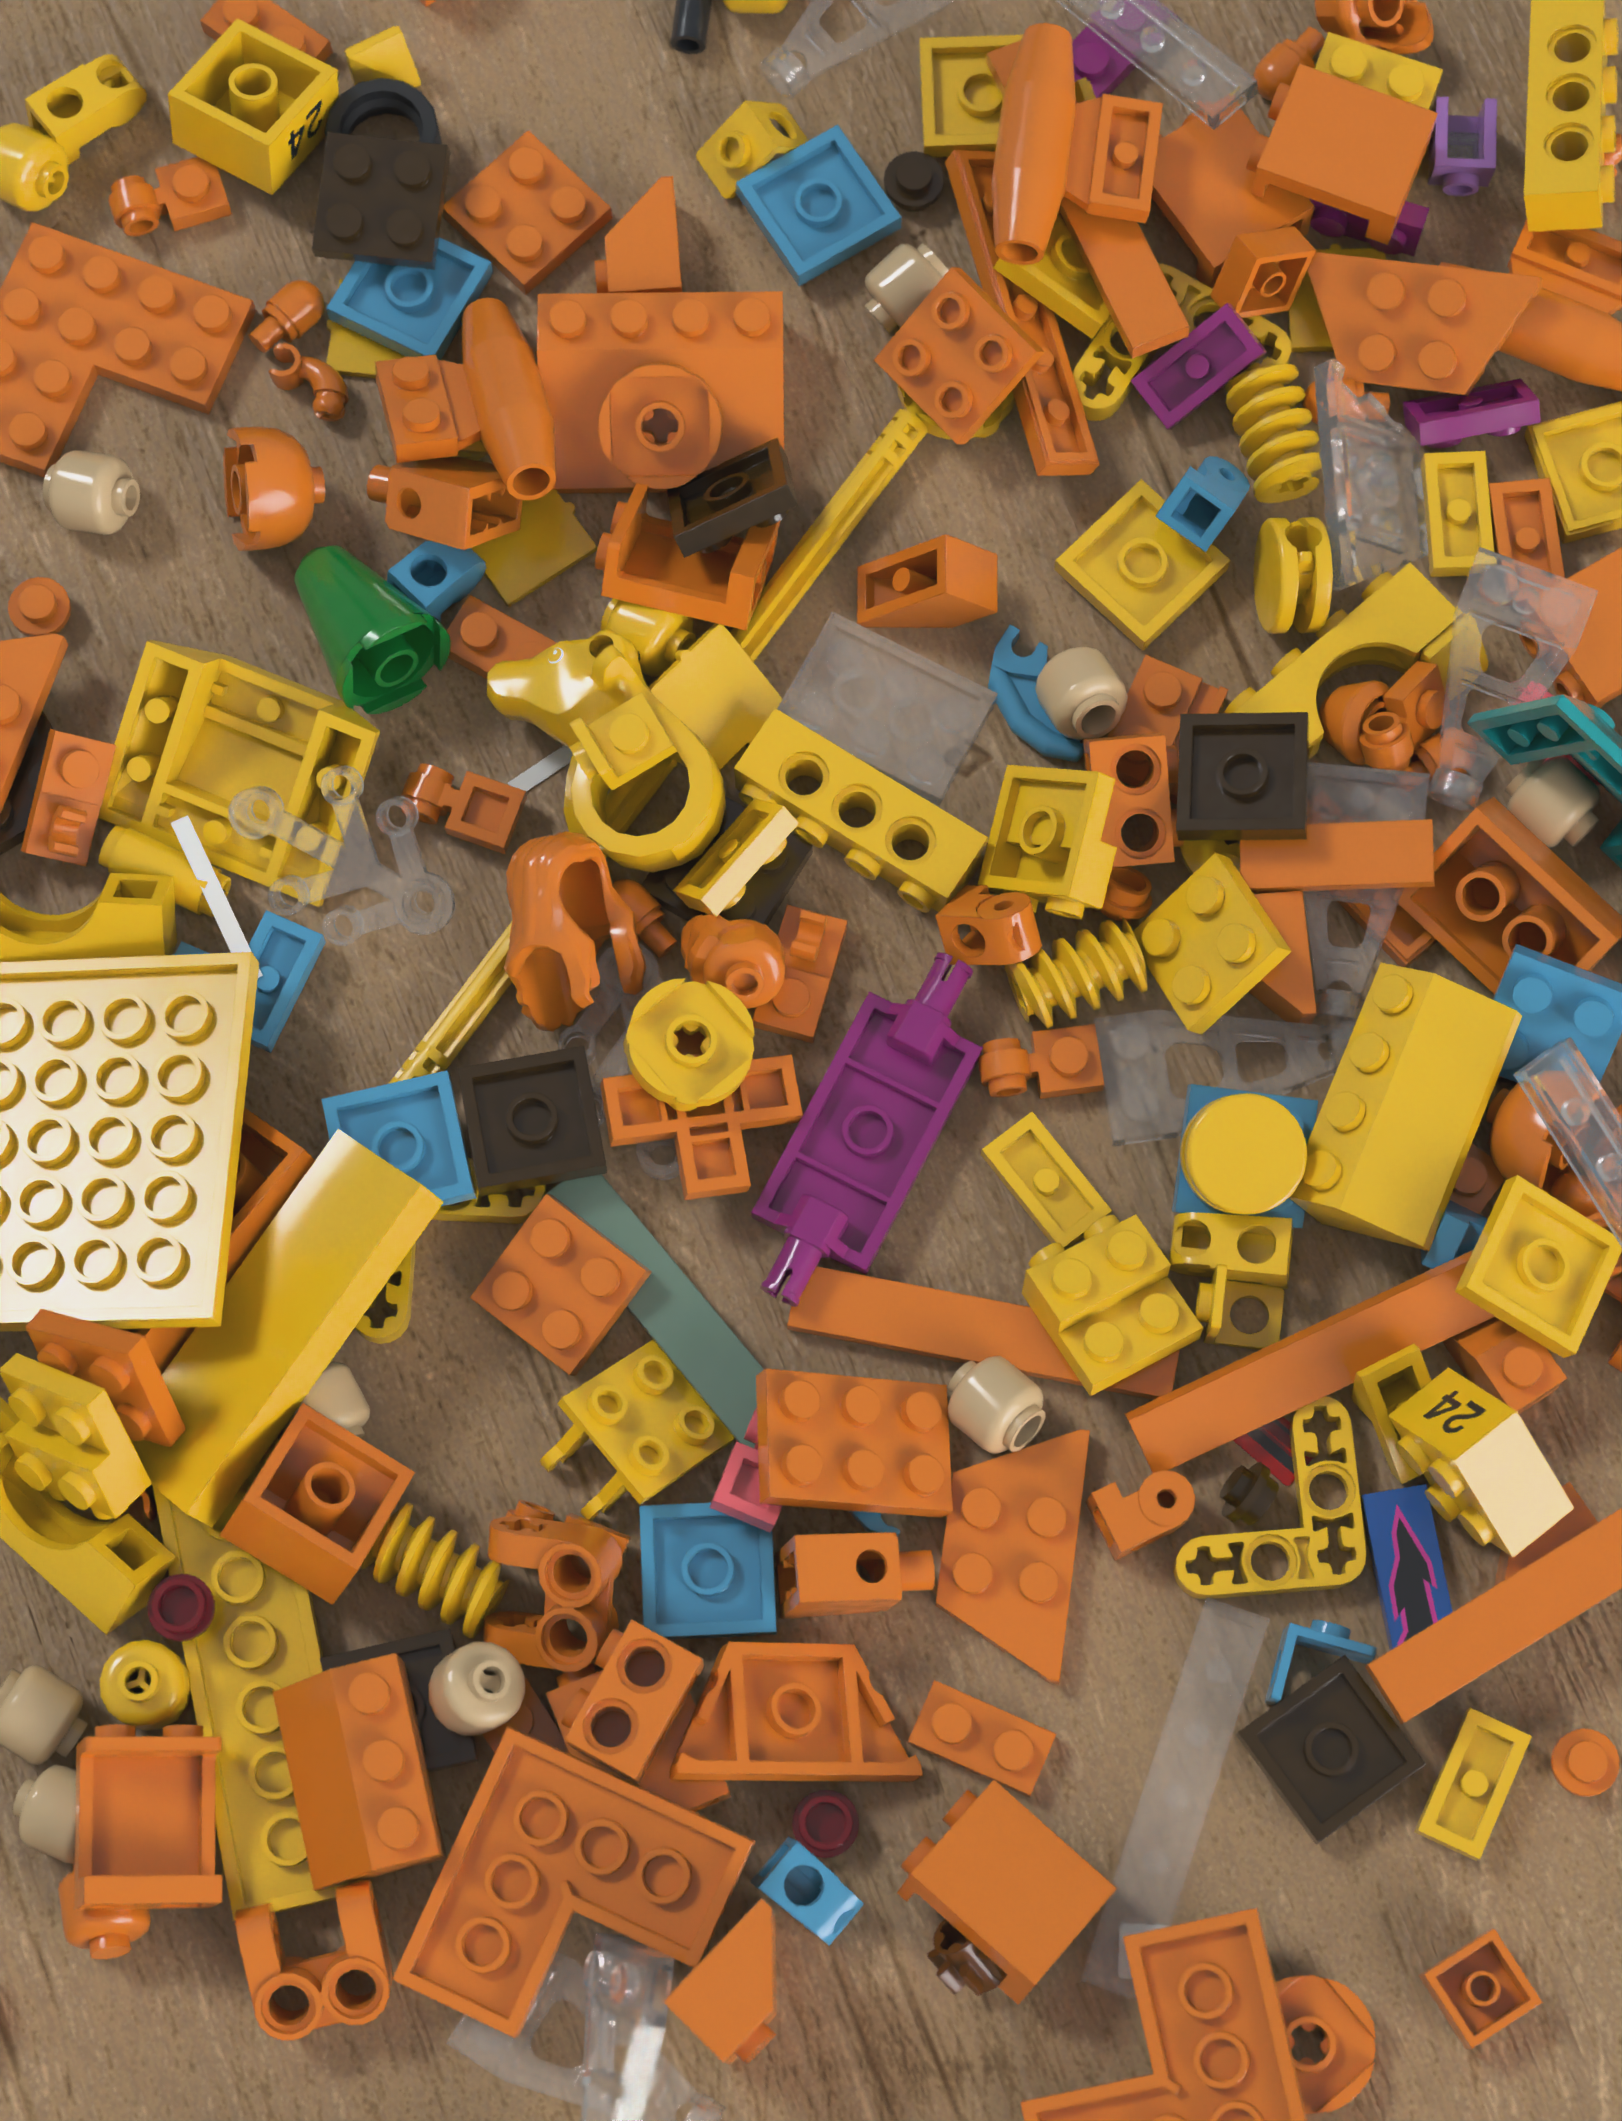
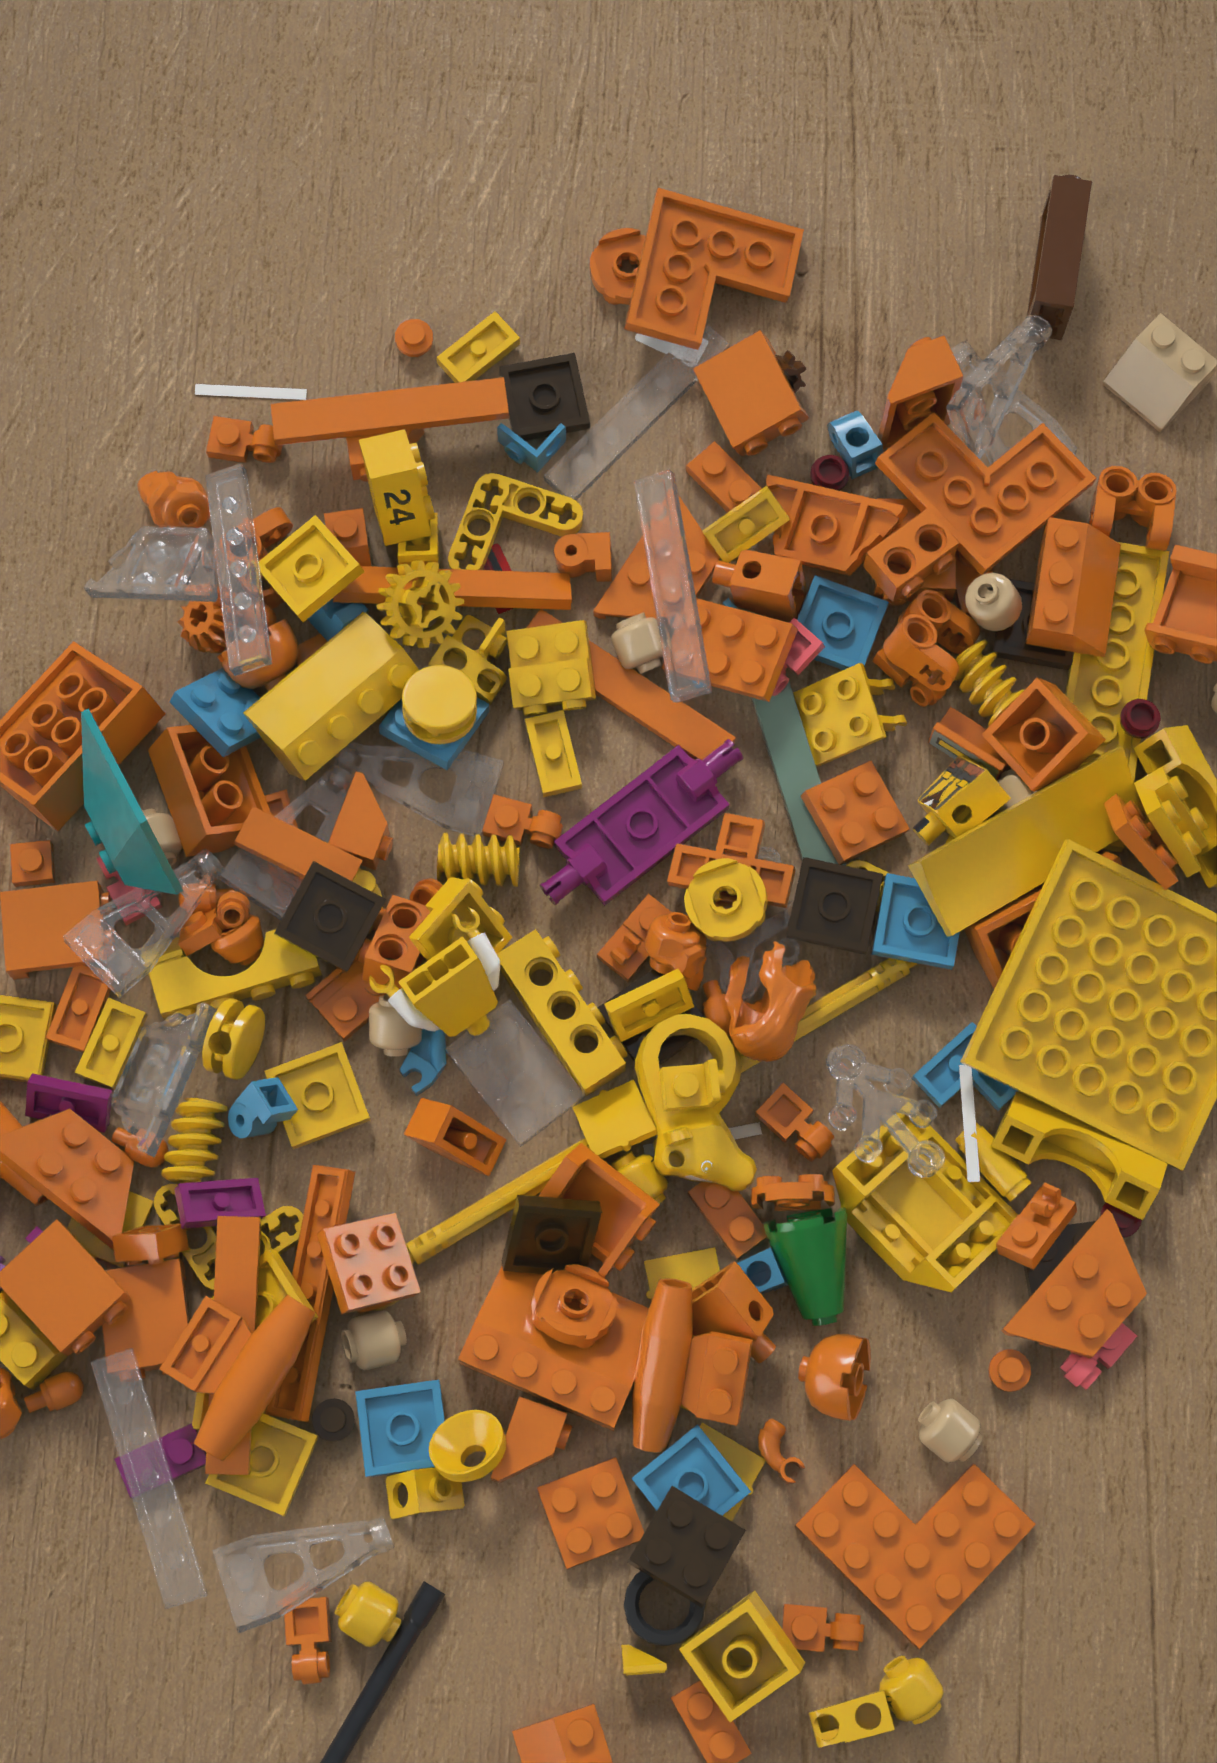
camera: 160 degrees left, 0 degrees up
(128, 1670) = (1174, 689): yellow head -> none
(289, 314) = (775, 1505): orange cylinder -> none
(409, 1356) = (959, 800): none -> yellow torso
(424, 679) = (793, 1196): none -> orange plate
(449, 1471) = (962, 737): none -> orange panel
(742, 189) = (462, 1436): none -> yellow piece
(917, 1664) = (746, 524): none -> yellow plate
(985, 1505) = (672, 586): none -> clear tile
(1000, 927) = (520, 901): orange leg -> none
(1024, 738) = (451, 988): none -> yellow torso
(1209, 943) = (396, 837): yellow plate -> none
(1248, 1493) = (523, 540): dark brown plate -> none
(1346, 1281) = (413, 618): none -> yellow gear
(1405, 1561) = (457, 468): tile -> none
(1480, 1989) = (526, 254): orange piece -> none

